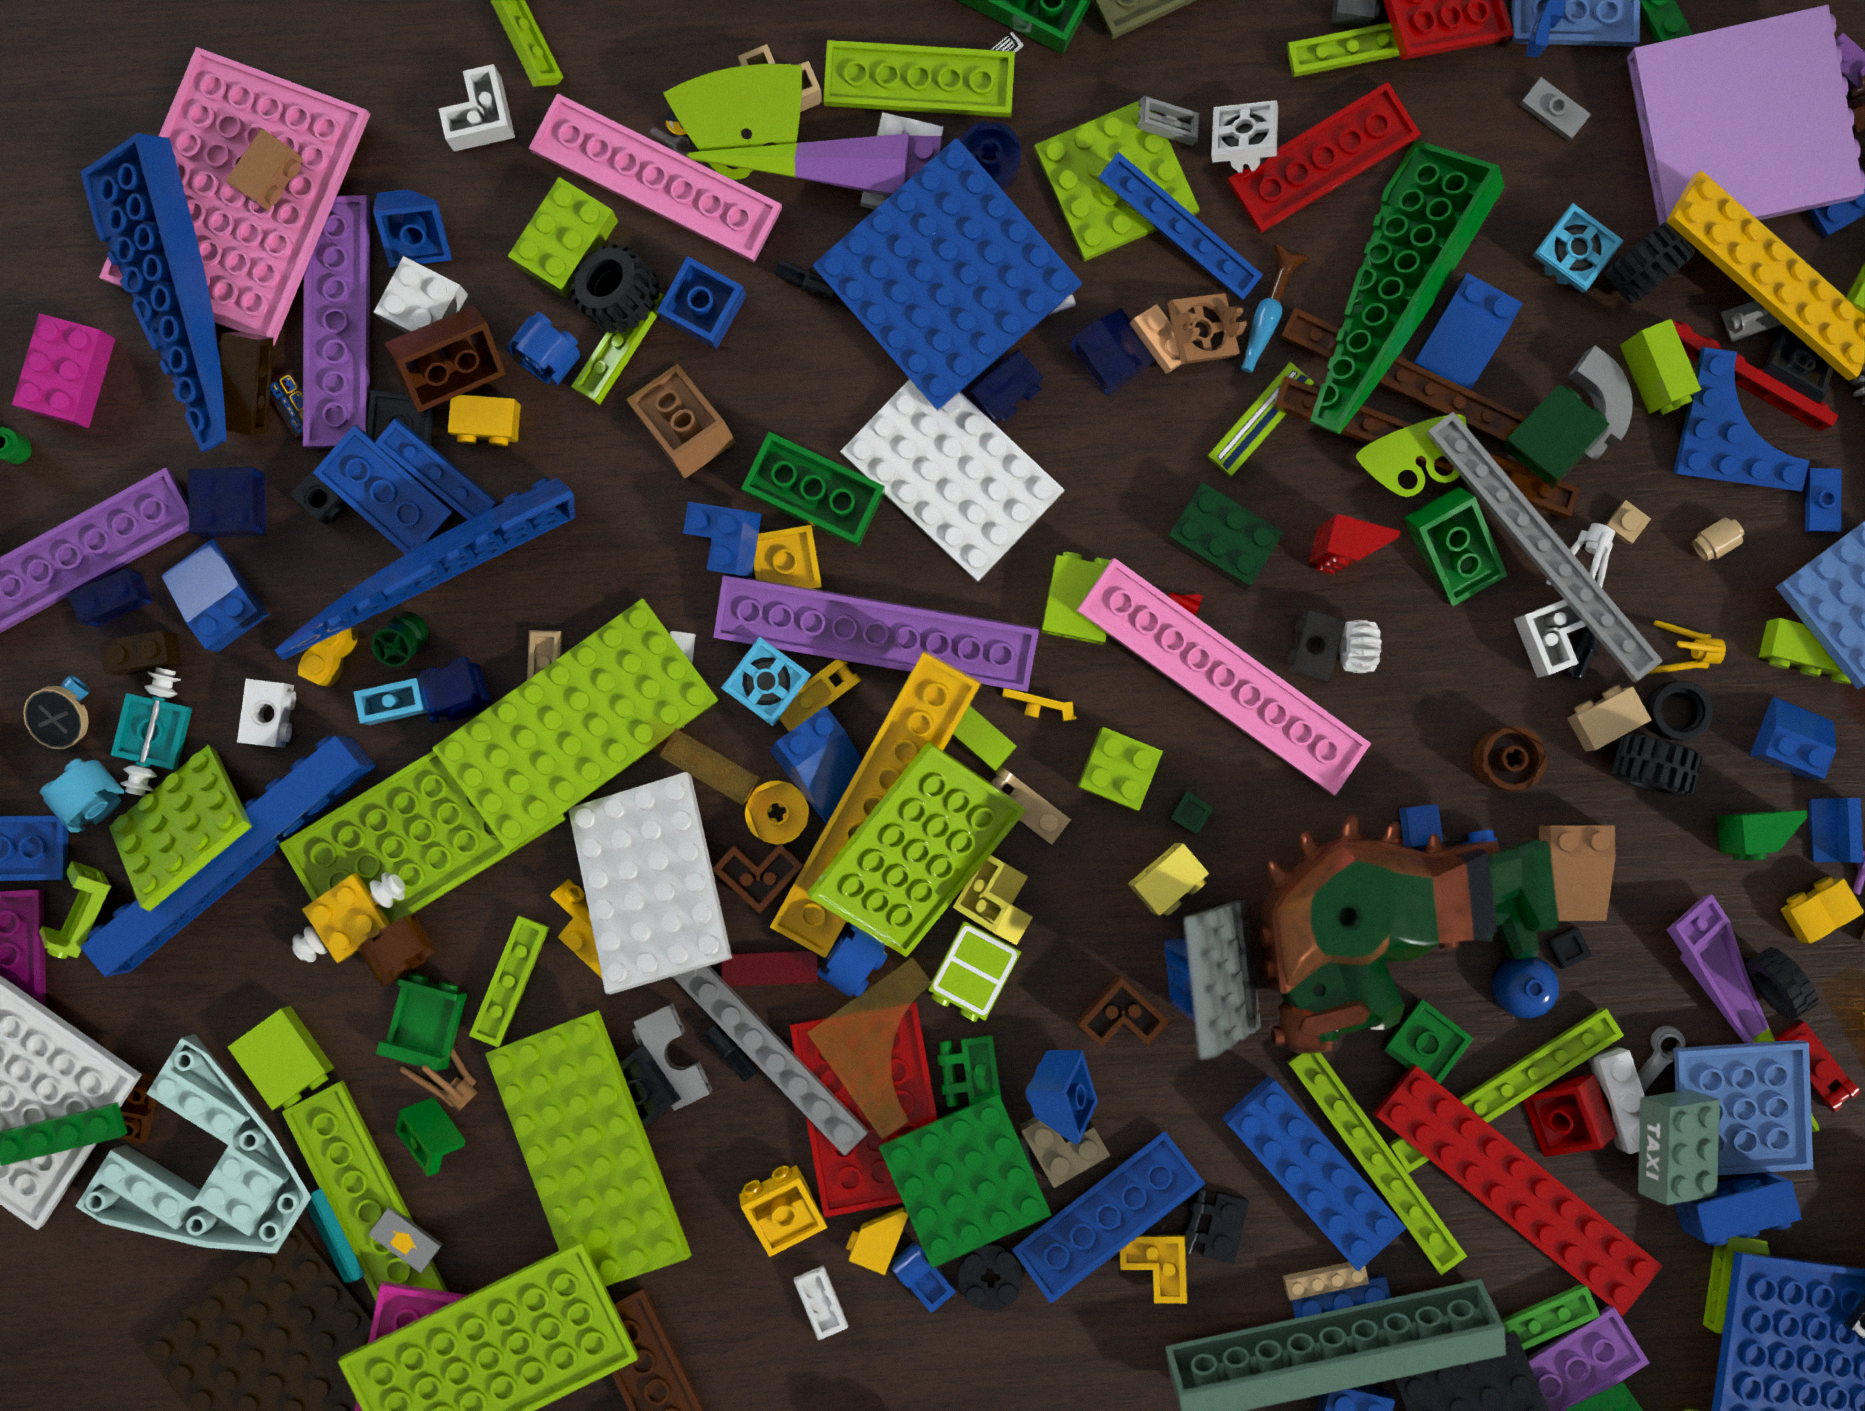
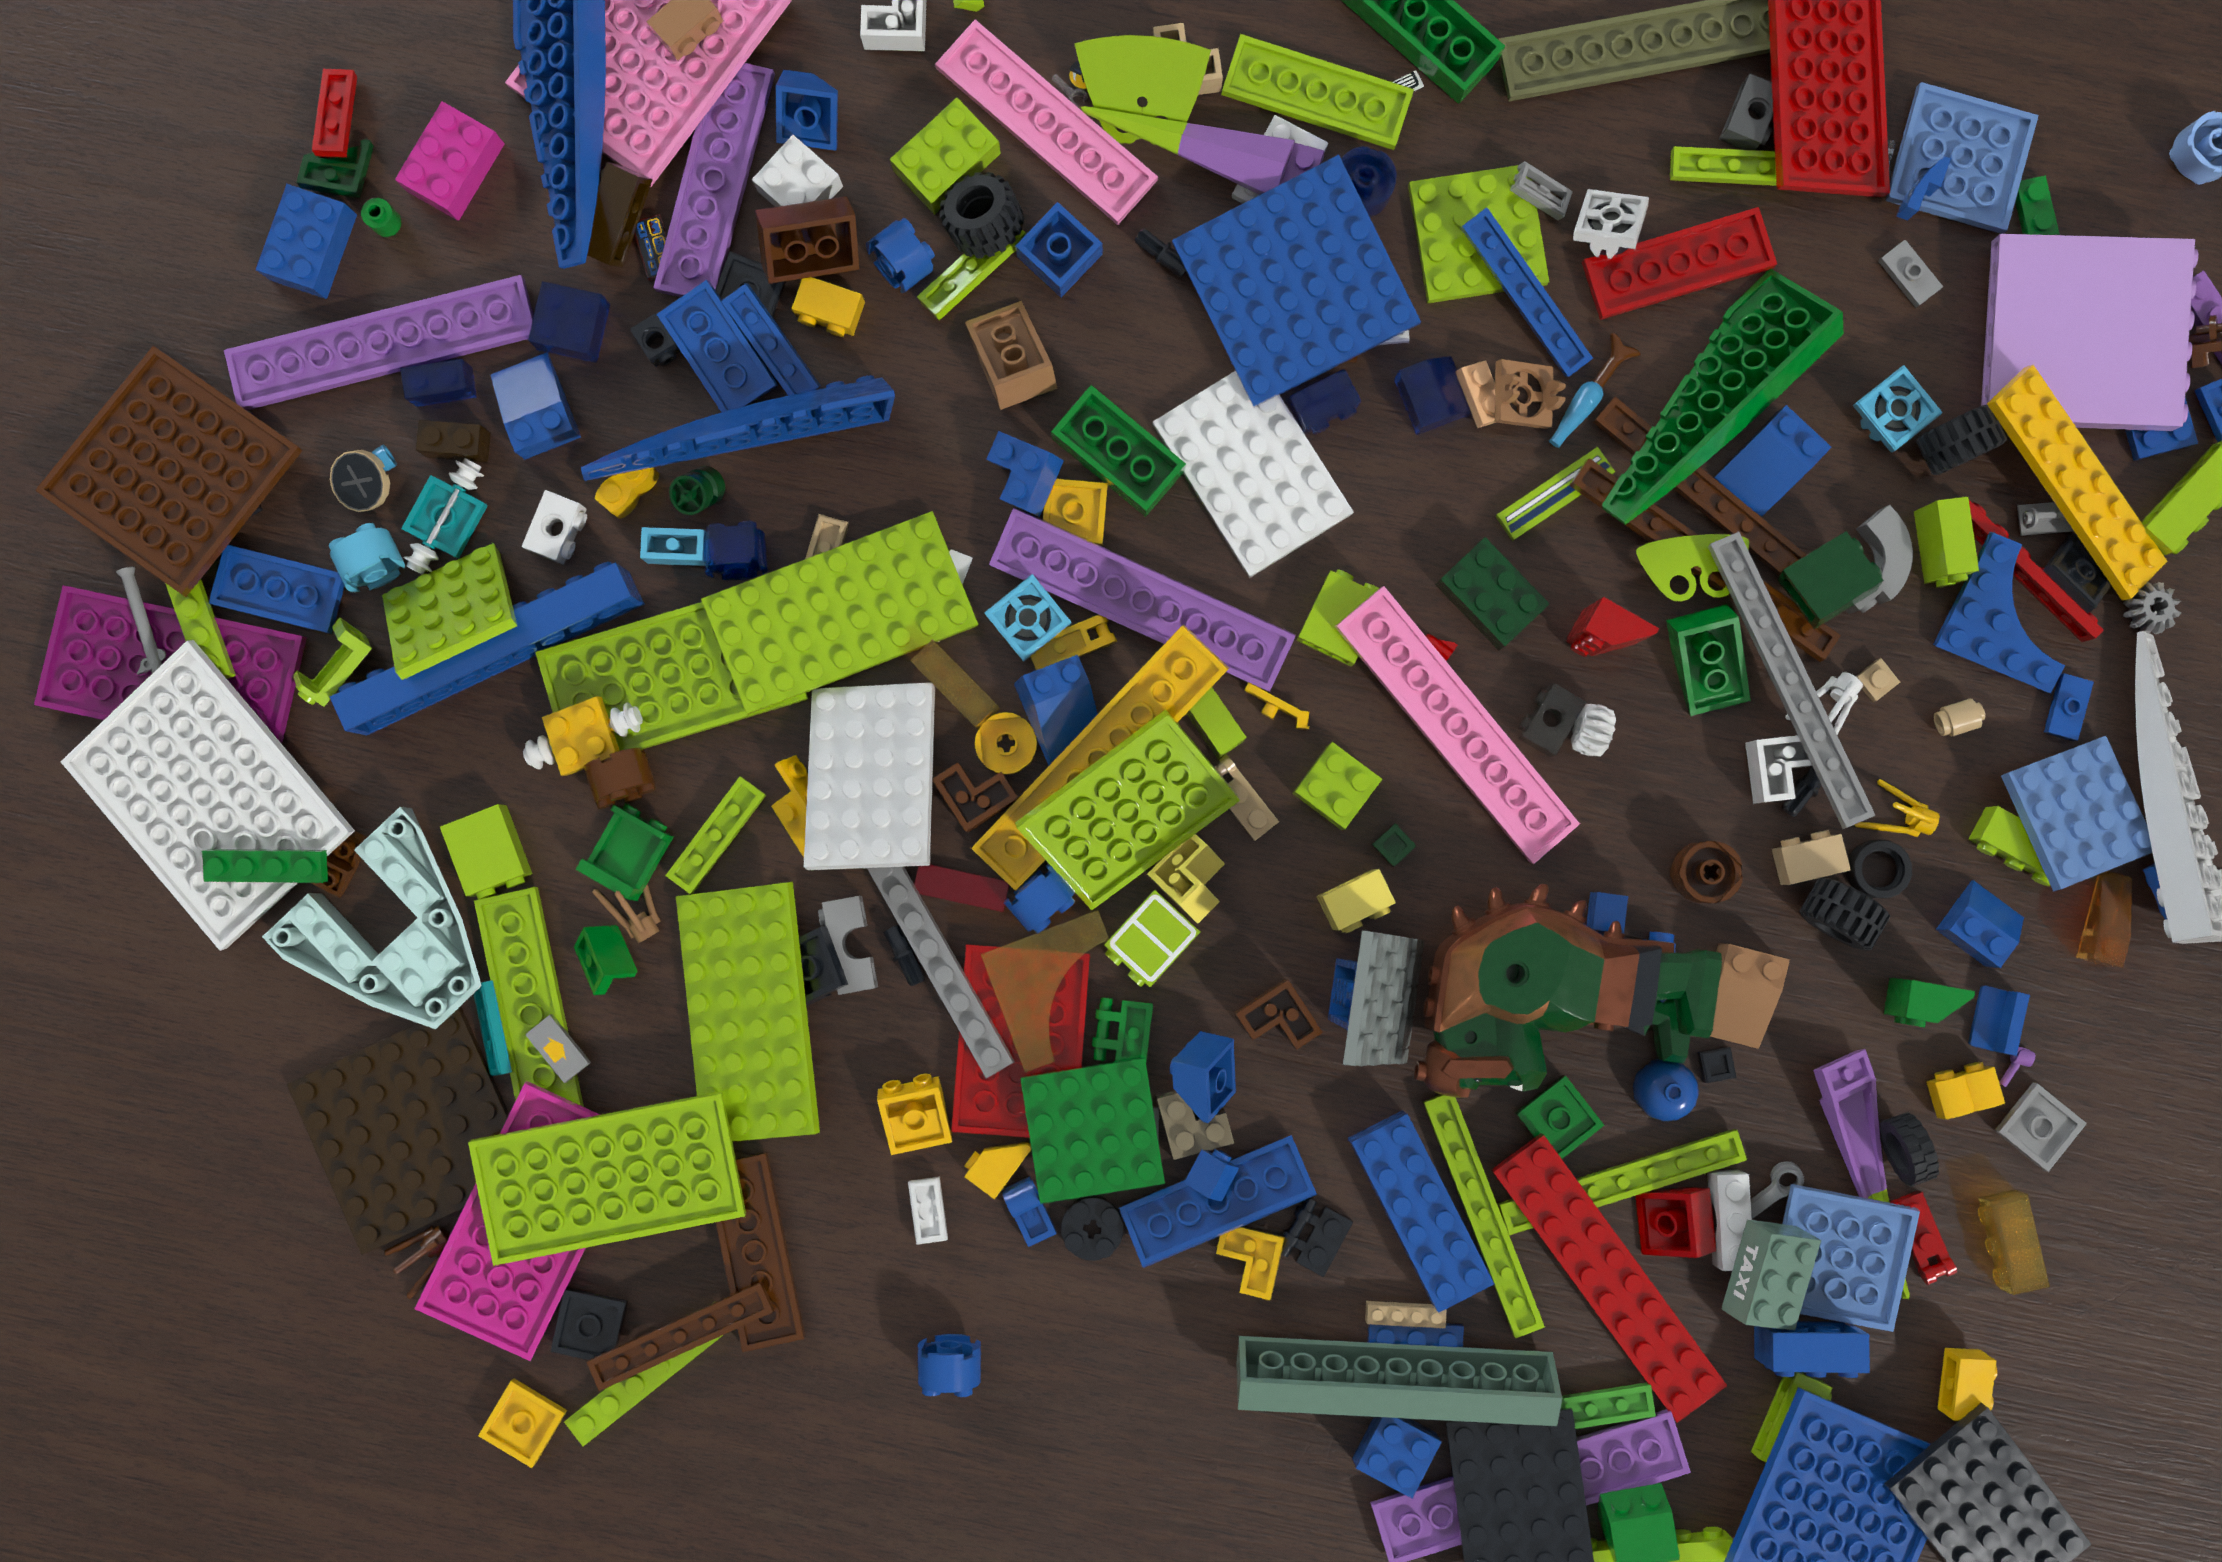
camera: 20 degrees right, 0 degrees up
(1096, 1193) = (1212, 1174): none -> blue brick

